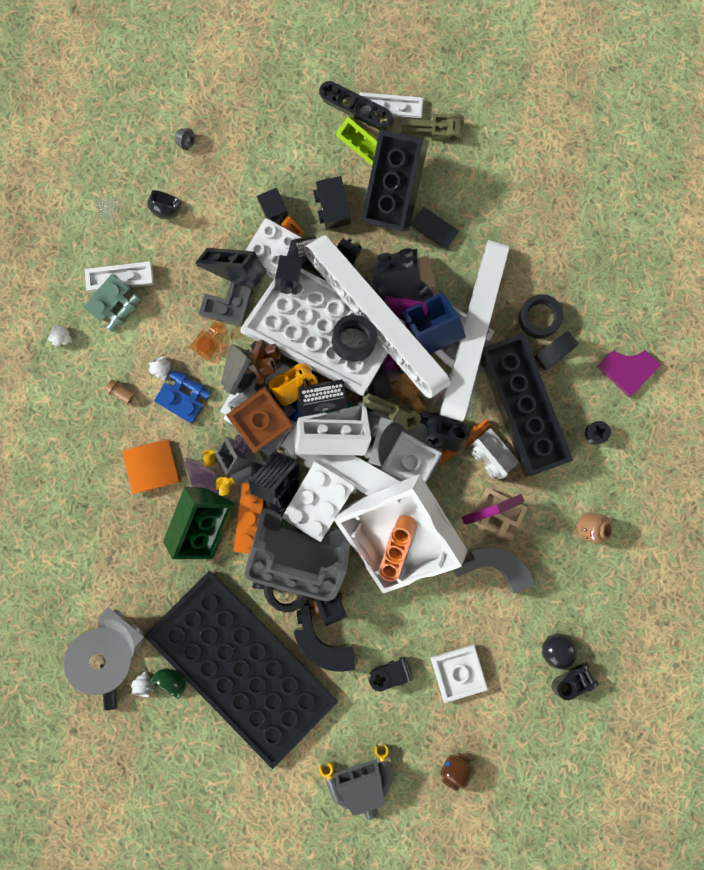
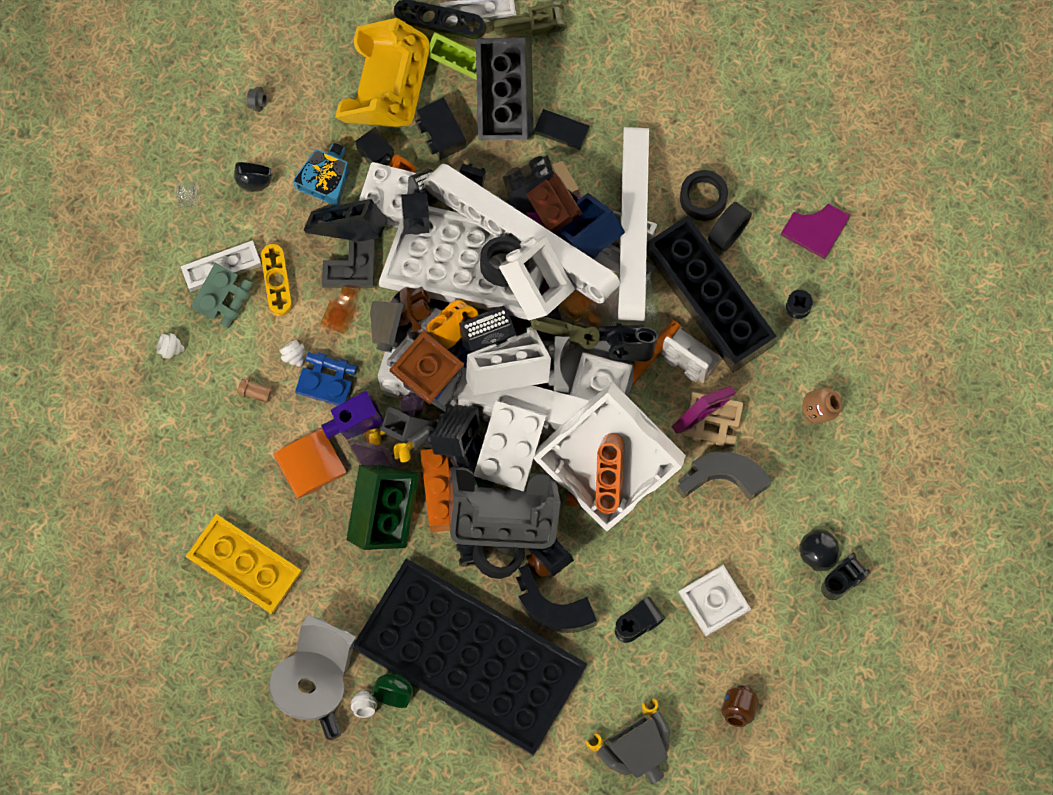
camera: 15 degrees left, 10 degrees down
(73, 540) = (244, 564): none -> yellow plate
(170, 284) = (280, 261): none -> yellow beam
(195, 438) = (362, 414): none -> dark purple torso
(224, 219) = (324, 175): none -> torso
(302, 145) = (390, 75): none -> yellow windscreen
(367, 383) = (523, 285): none -> white window
(410, 296) = (554, 203): none -> copper plate

